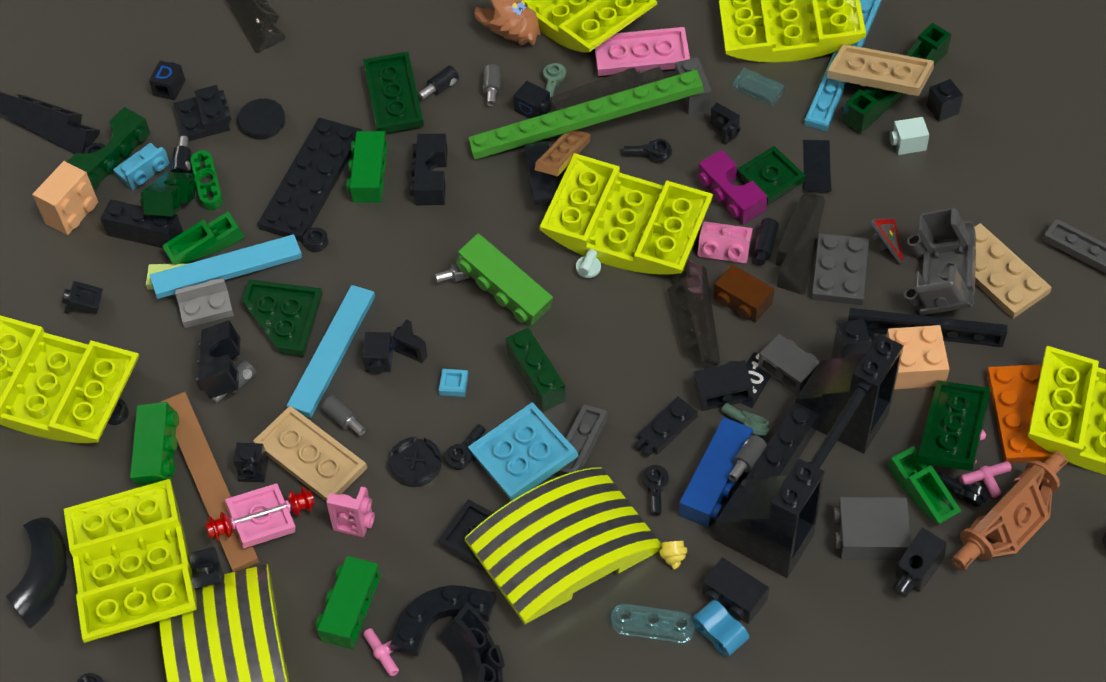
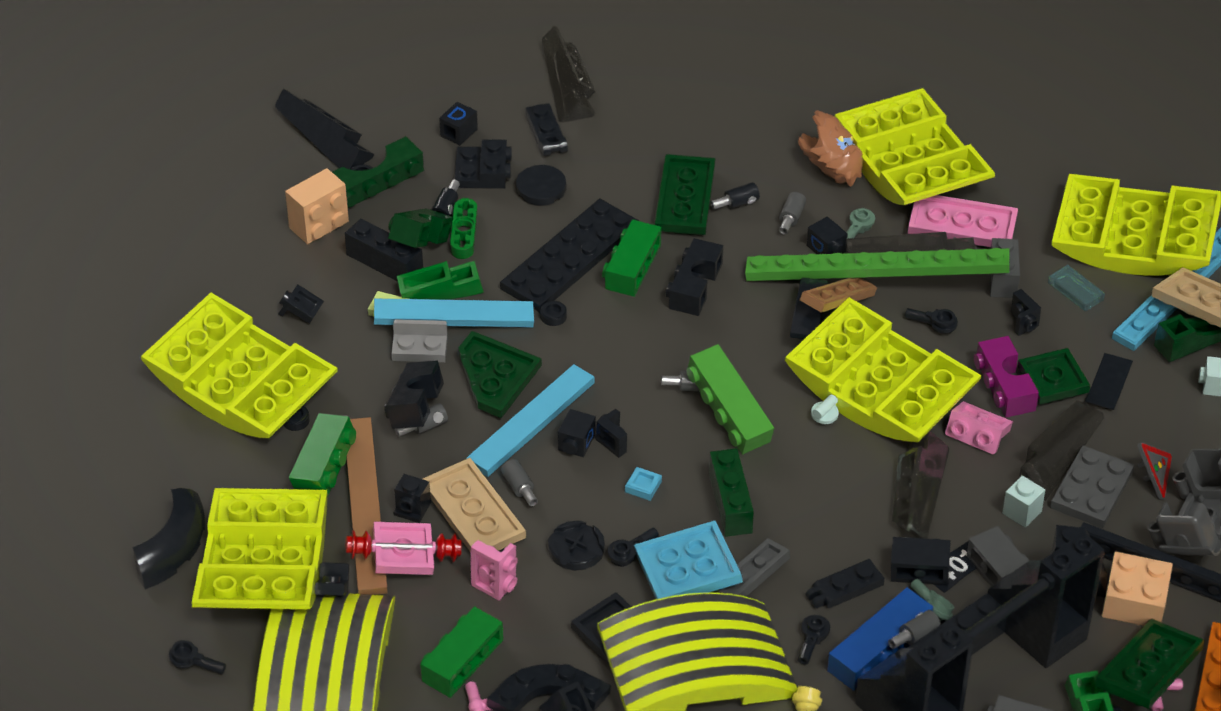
camera: 15 degrees right, 10 degrees down
(142, 166) = (404, 198): medium azure bracket -> none
(247, 64) = (546, 129): none -> black plate
(743, 293) = (977, 480): reddish brown brick -> none
(765, 240) = (1022, 437): black cylinder -> none
(790, 302) = (1023, 501): none -> light aqua brick

